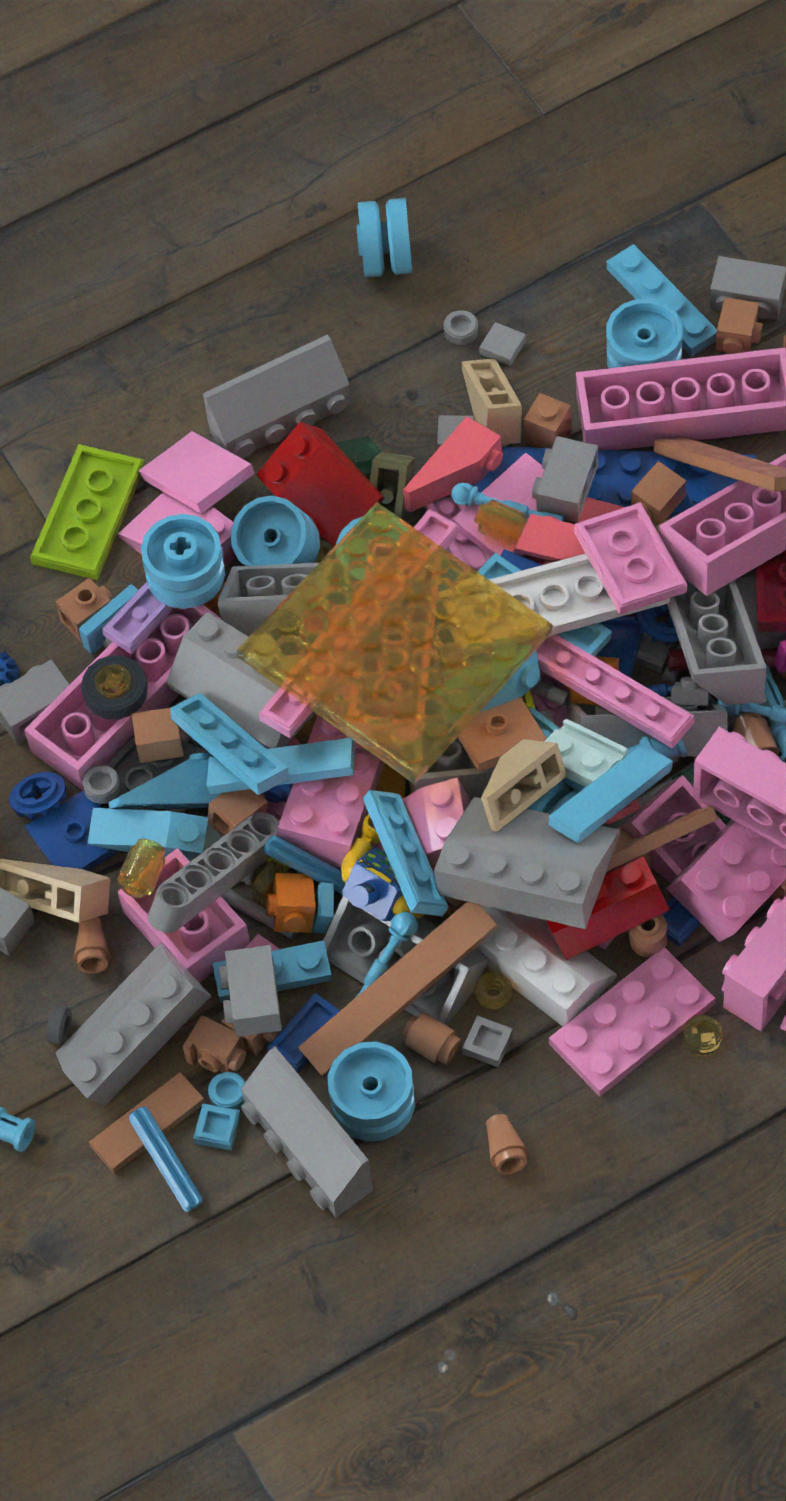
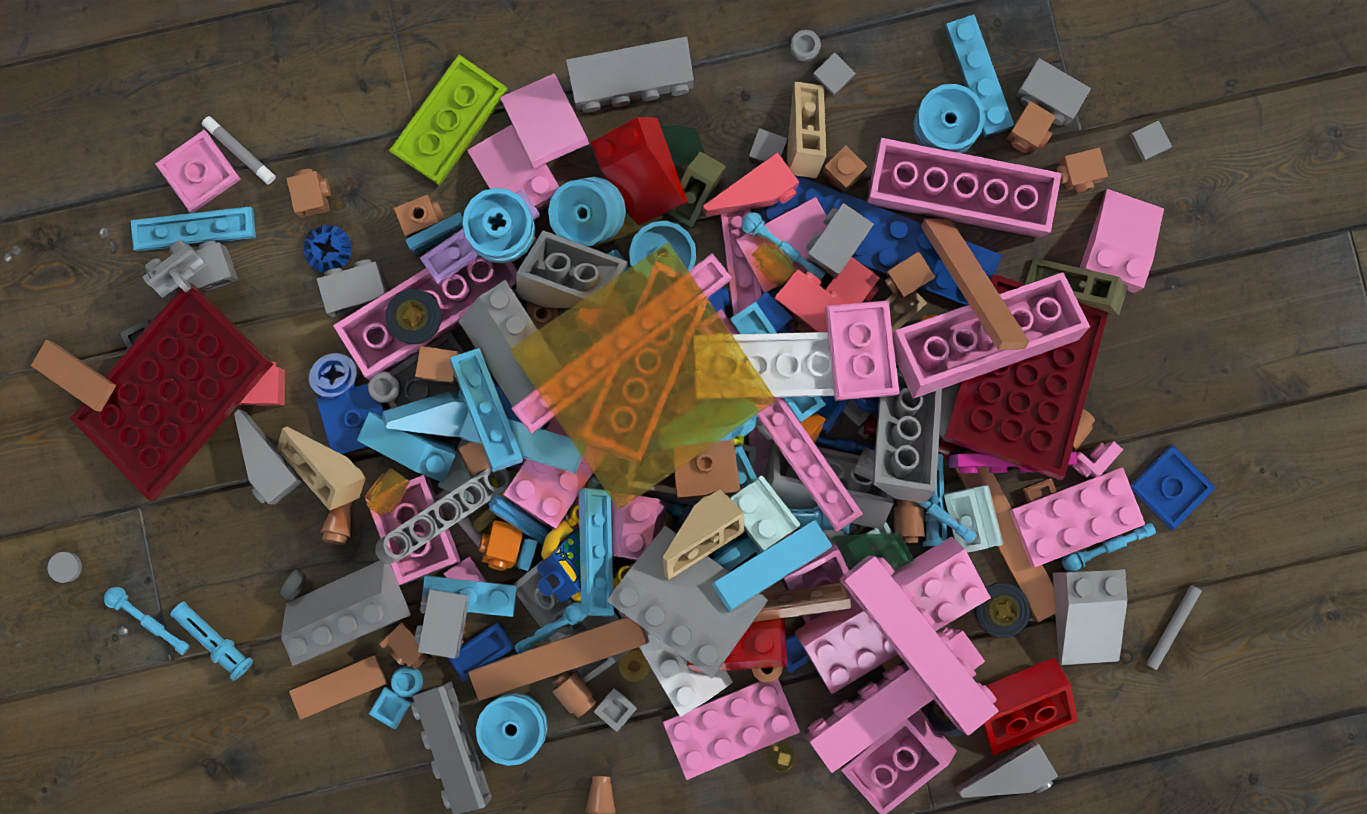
camera: 10 degrees right, 25 degrees up
(165, 1159) = (341, 727): dark azure axle -> none

